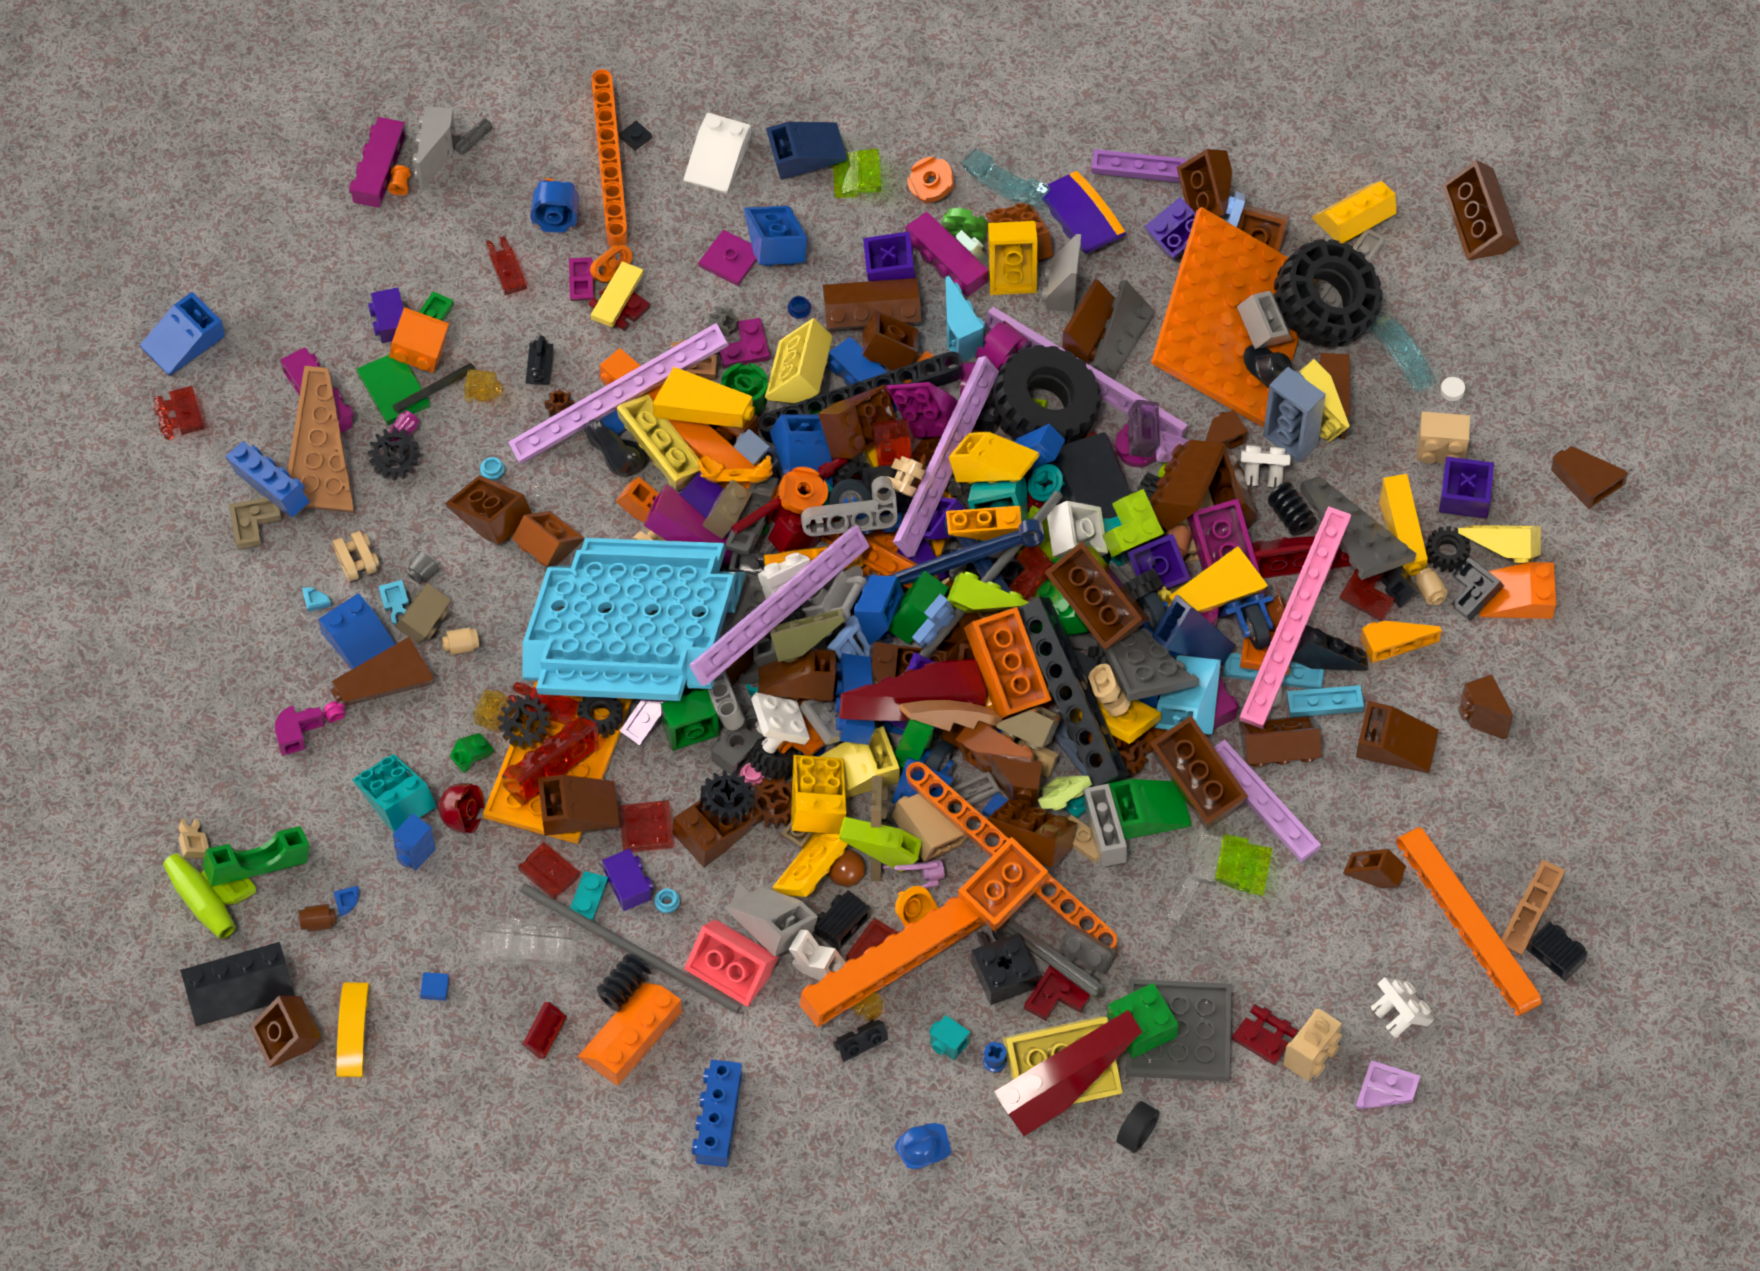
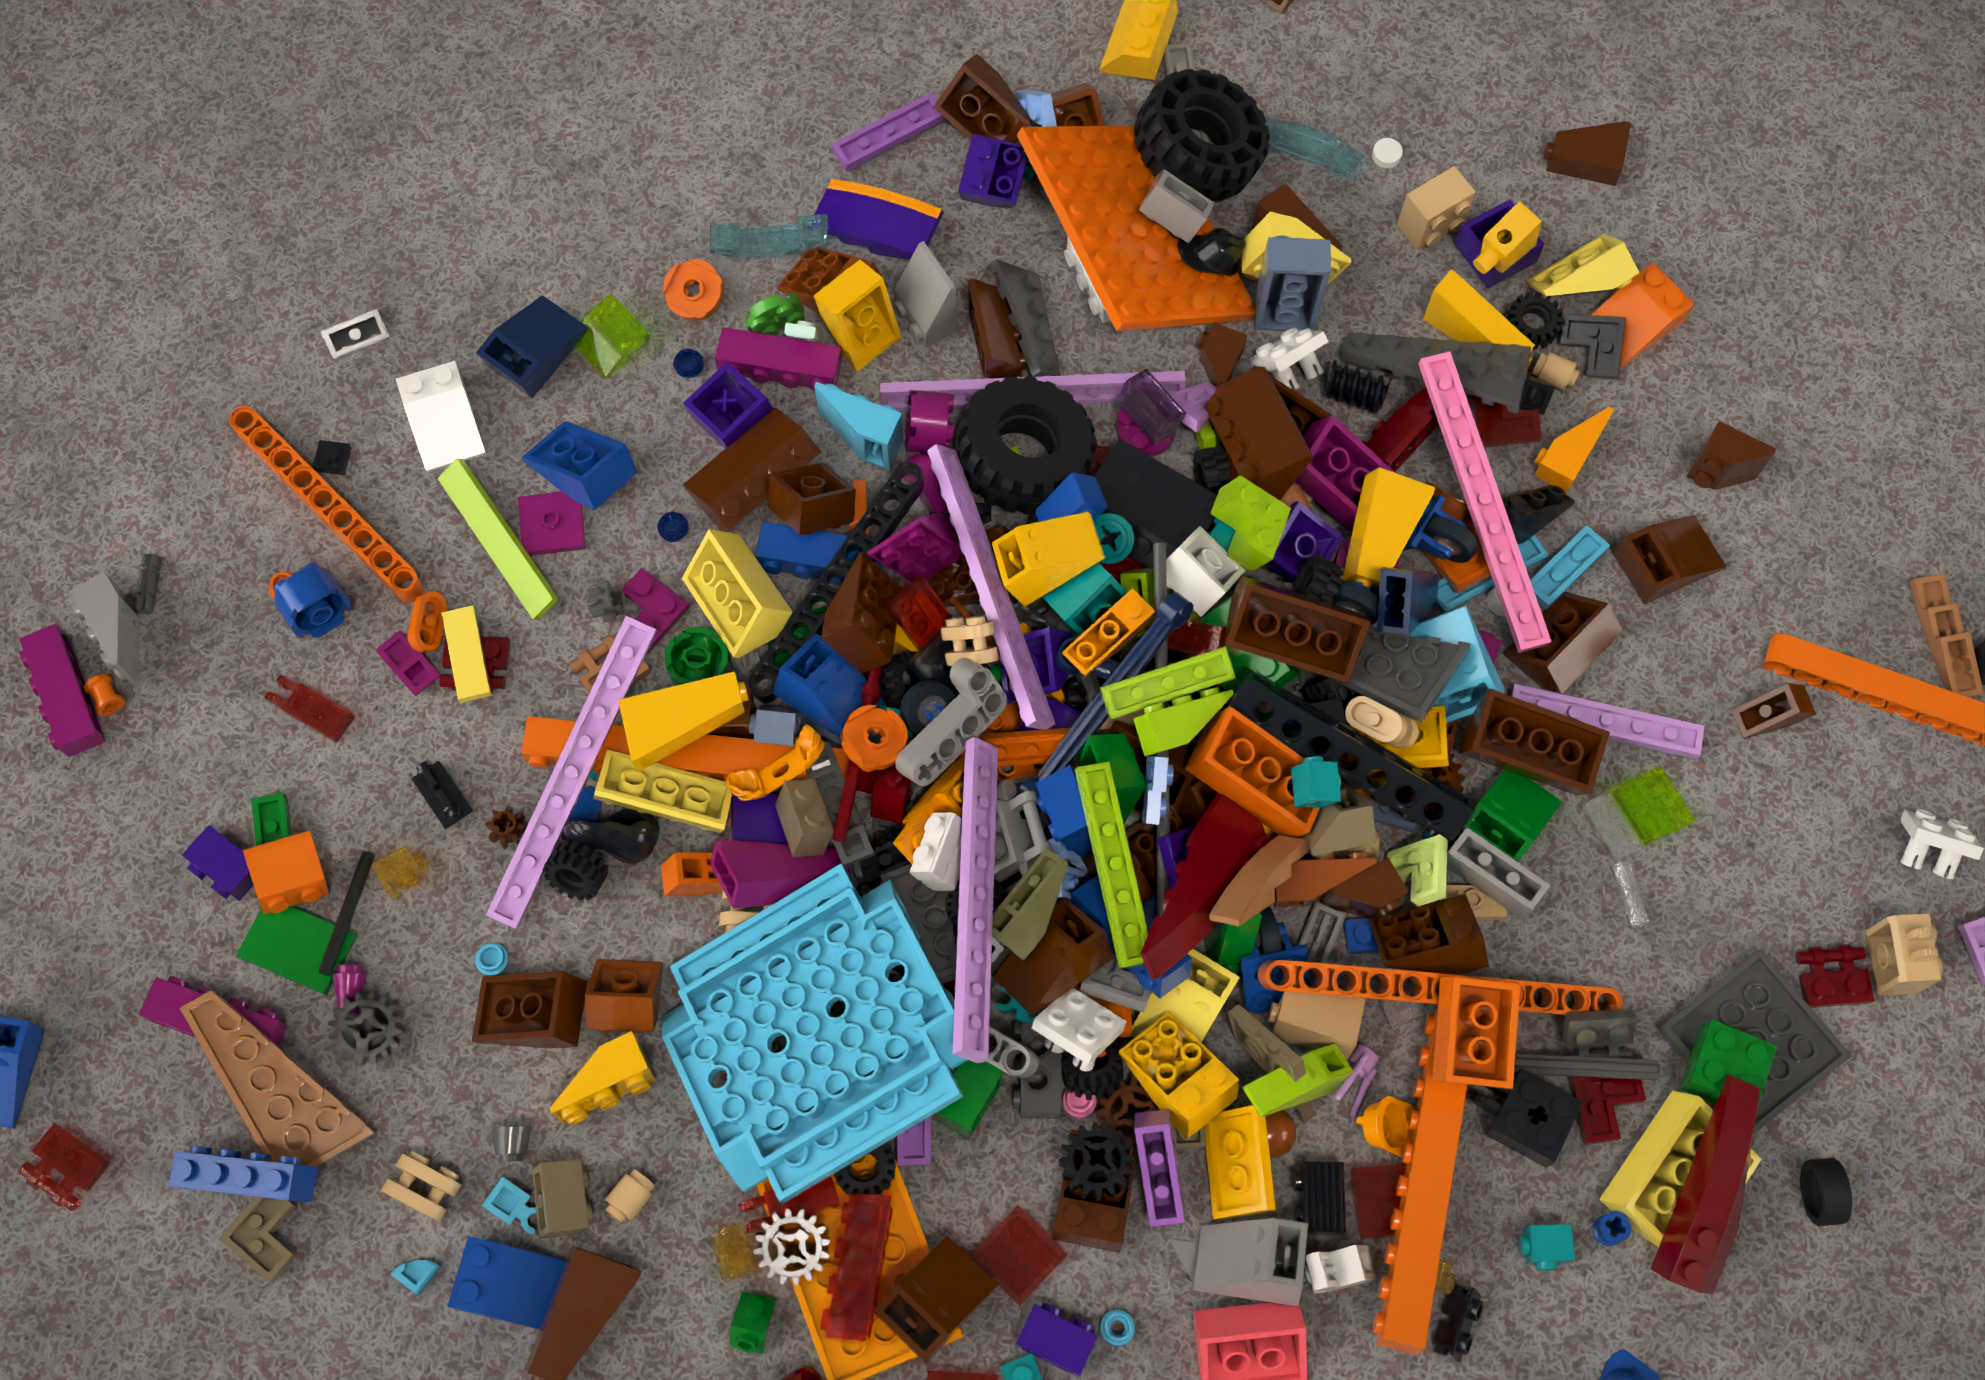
camera: 40 degrees left, 10 degrees up
(498, 568) = (608, 1075): none -> yellow slope
(576, 451) = (575, 870): none -> black tyre
(691, 245) = (498, 539): none -> tile
(709, 73) = (355, 334): none -> slope
(761, 830) = (1159, 1168): none -> medium lavender brick
(873, 637) = (1113, 862): none -> lime tile
(891, 221) = (688, 363): none -> clear blue plate
(993, 570) = (1167, 682): none -> lime tile
(1033, 688) = (1316, 783): none -> teal brick
(1457, 480) = (1509, 240): none -> yellow torso

